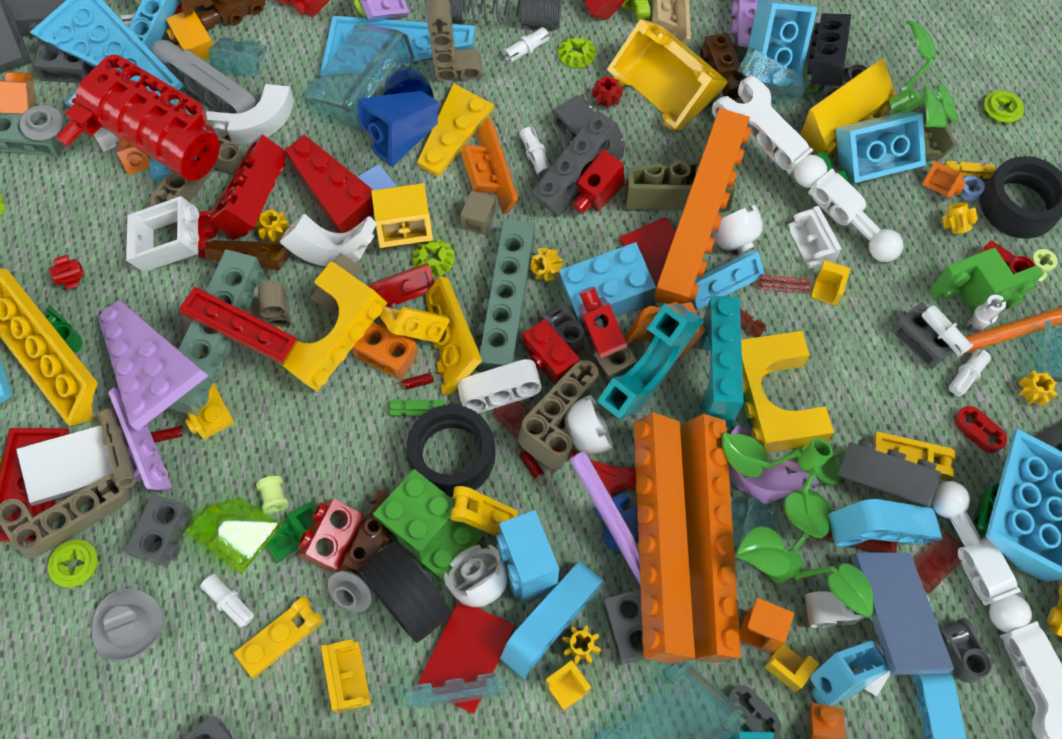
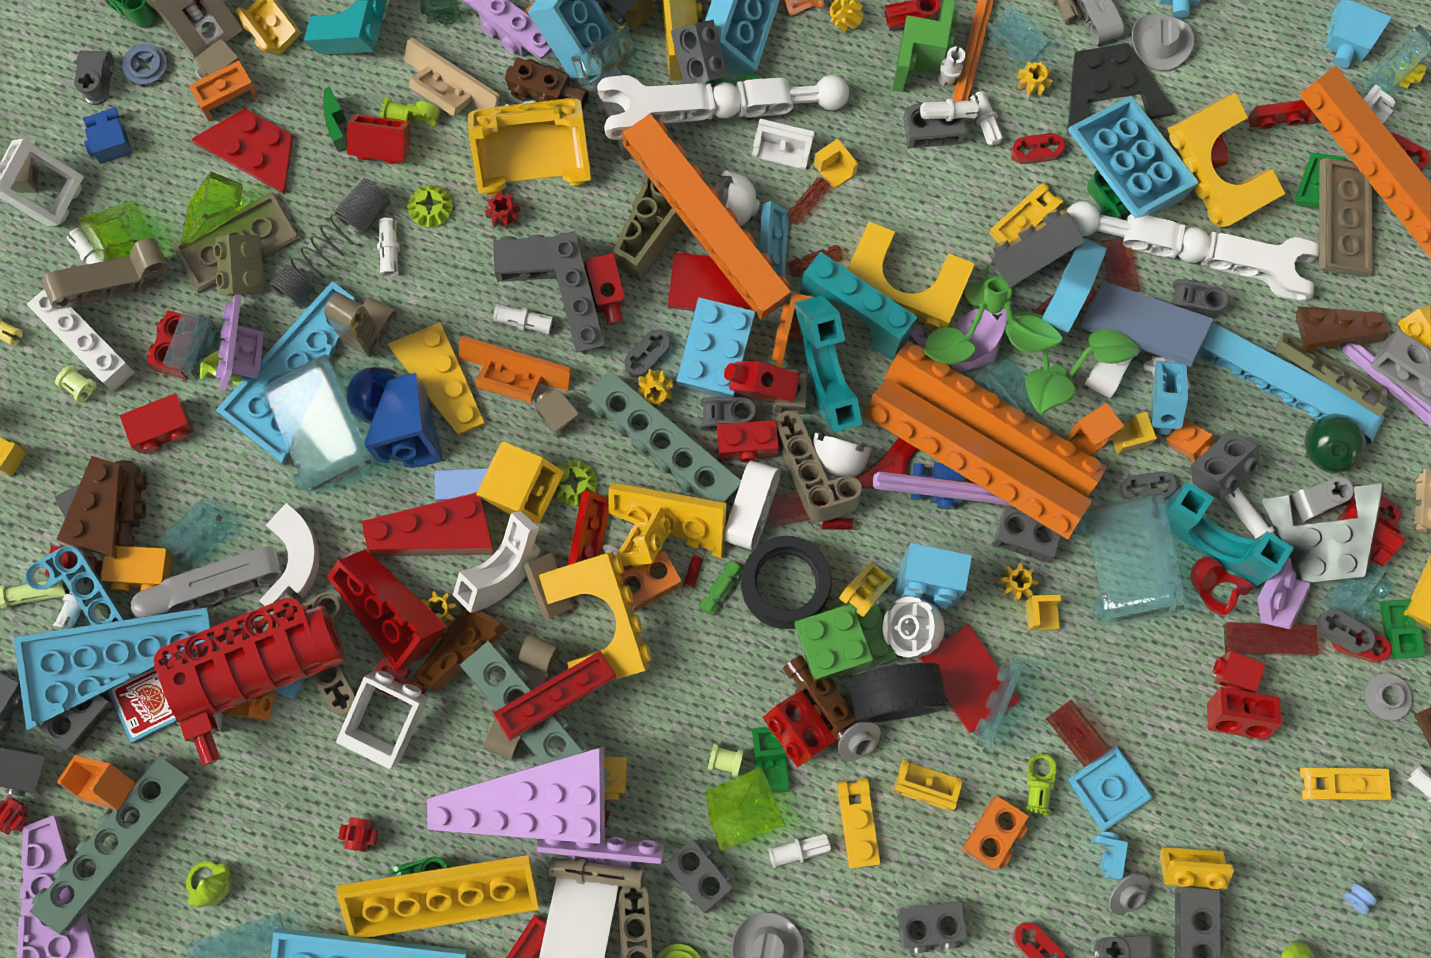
camera: 60 degrees left, 10 degrees up
(41, 132) = (166, 788): light grey piece -> none
(550, 619) = (988, 594): medium azure beam -> none
(571, 246) = (642, 349): none -> dark grey beam
(830, 125) = (699, 52): none -> dark grey brick

